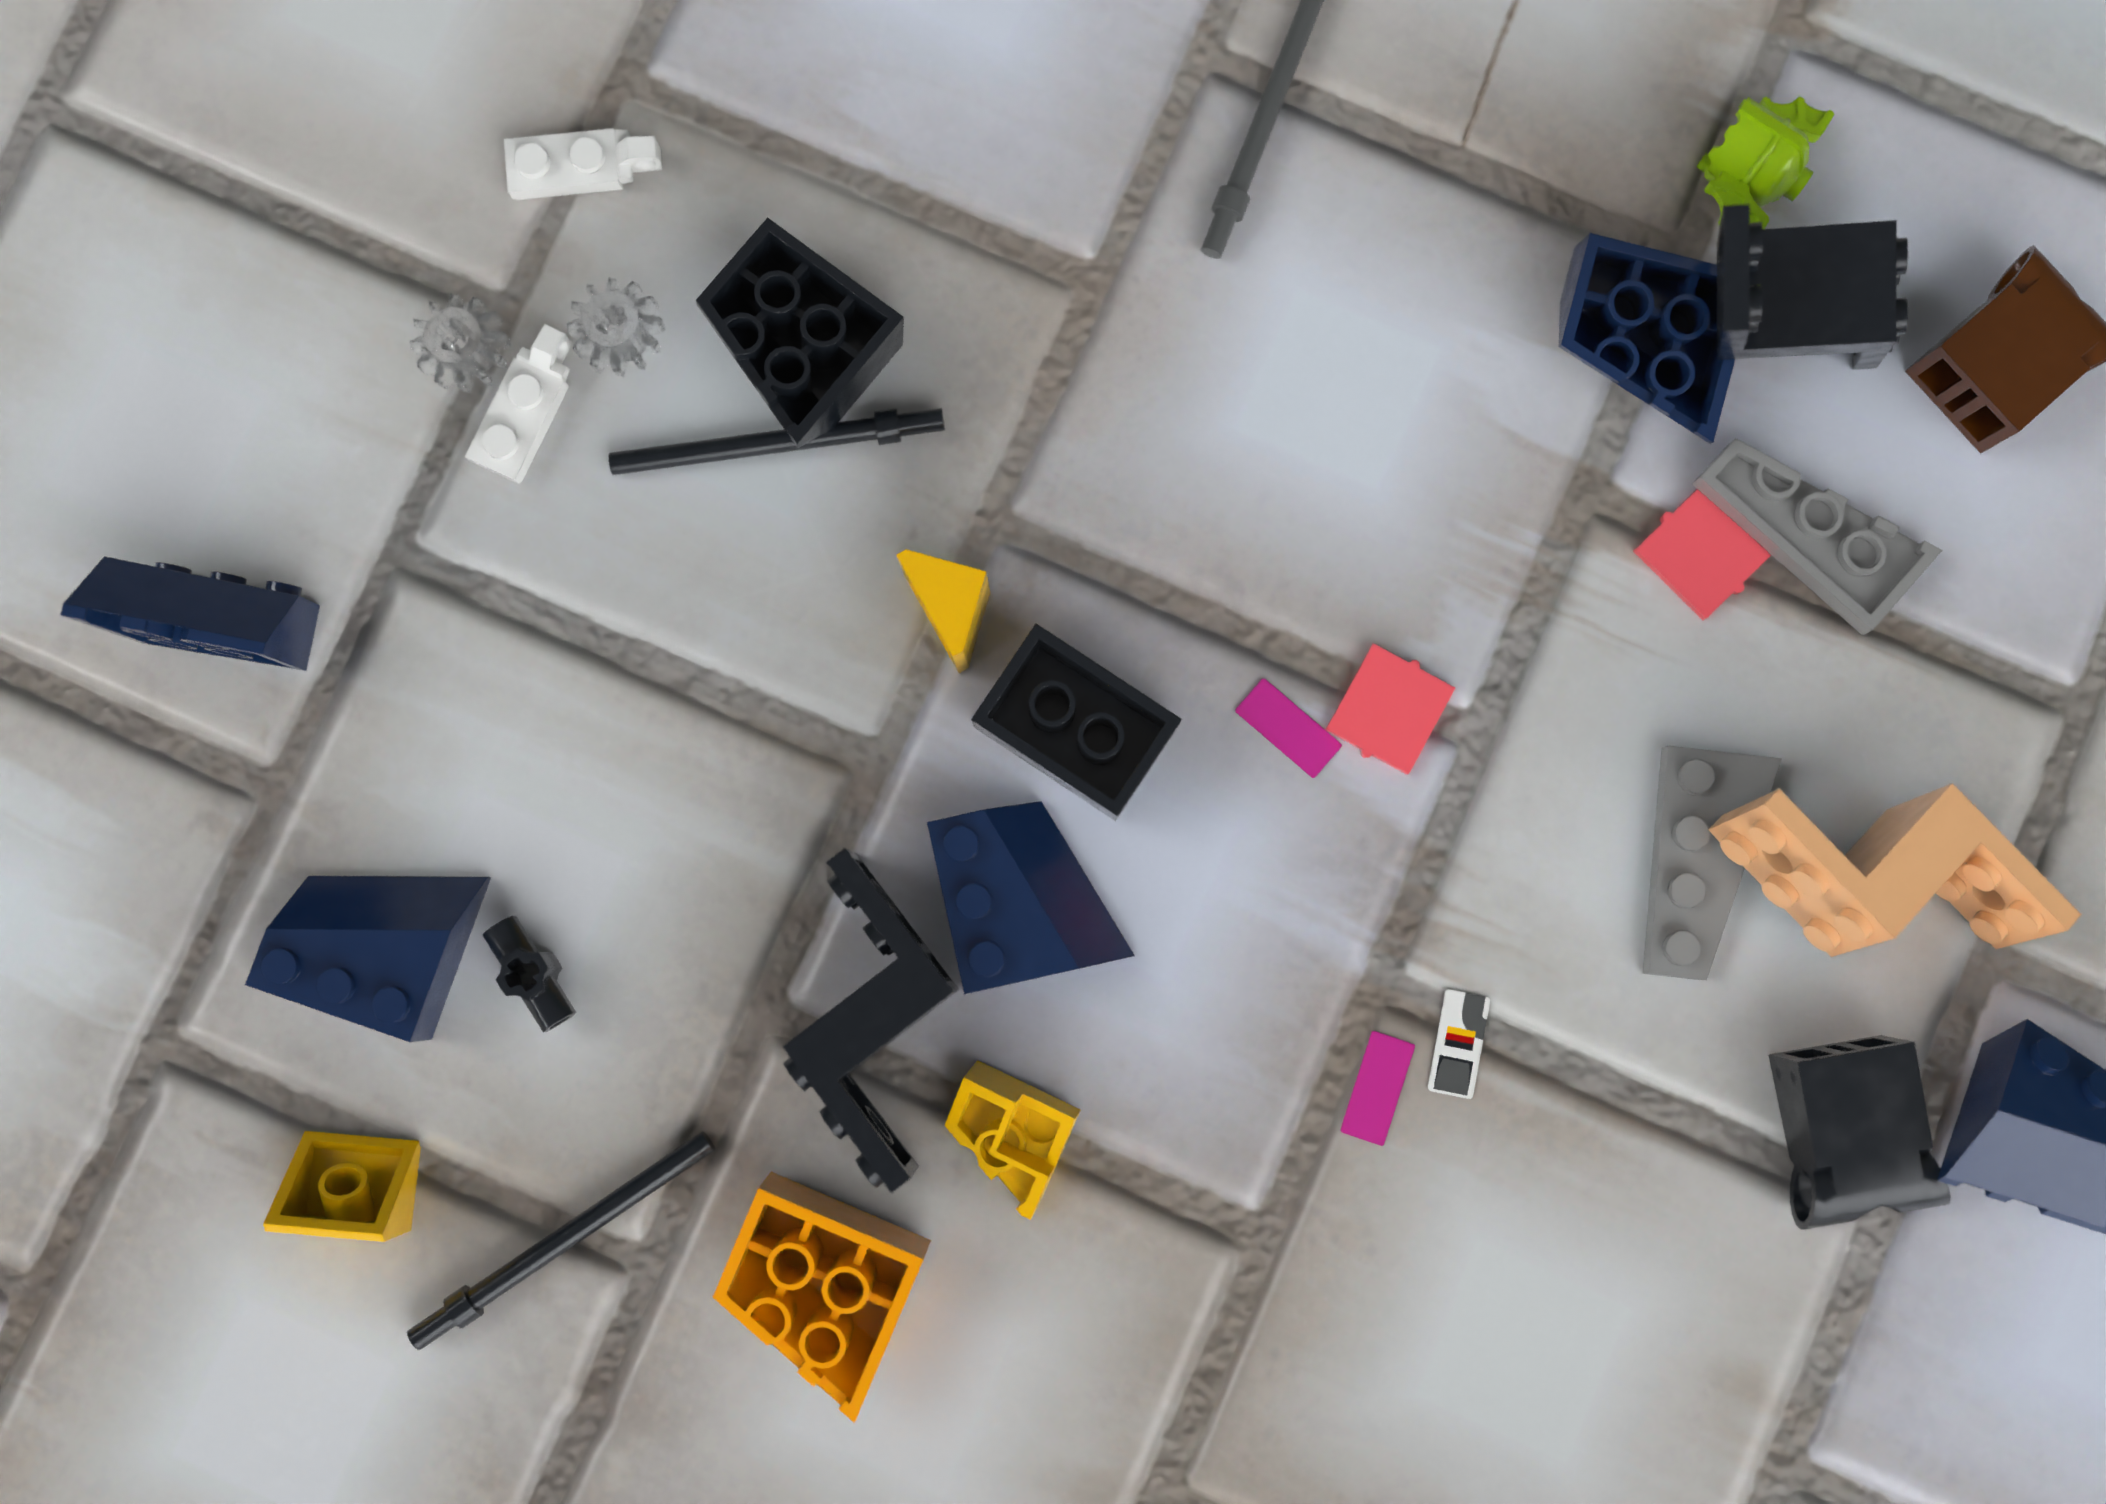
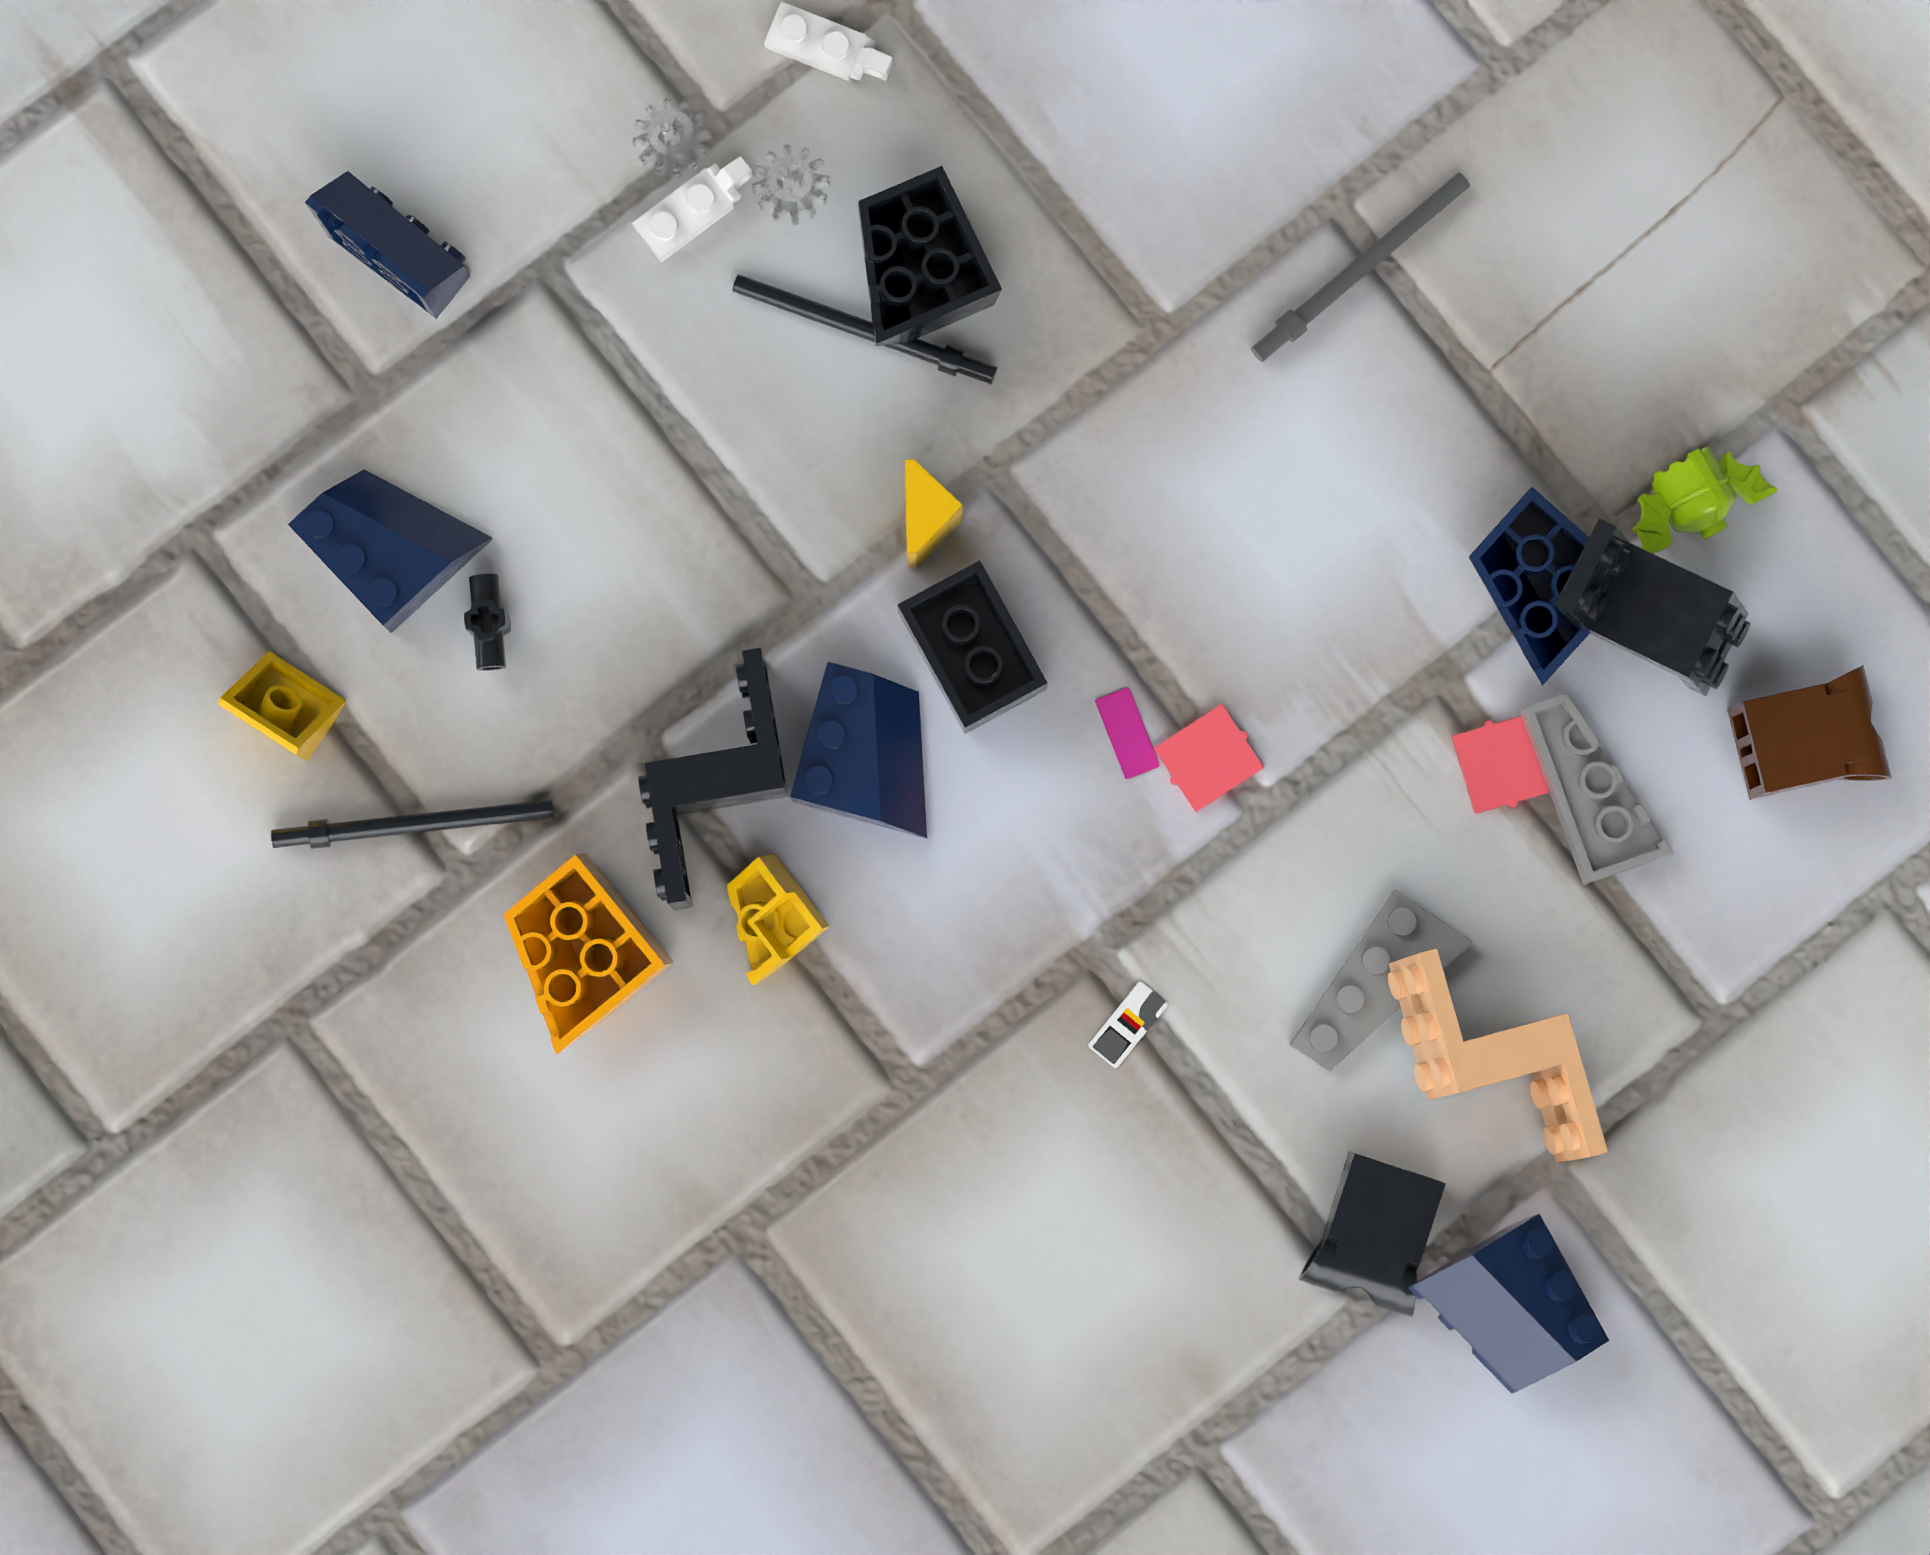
camera: 25 degrees right, 0 degrees up
(1377, 1088) = (1051, 1025): dark pink sticker -> none

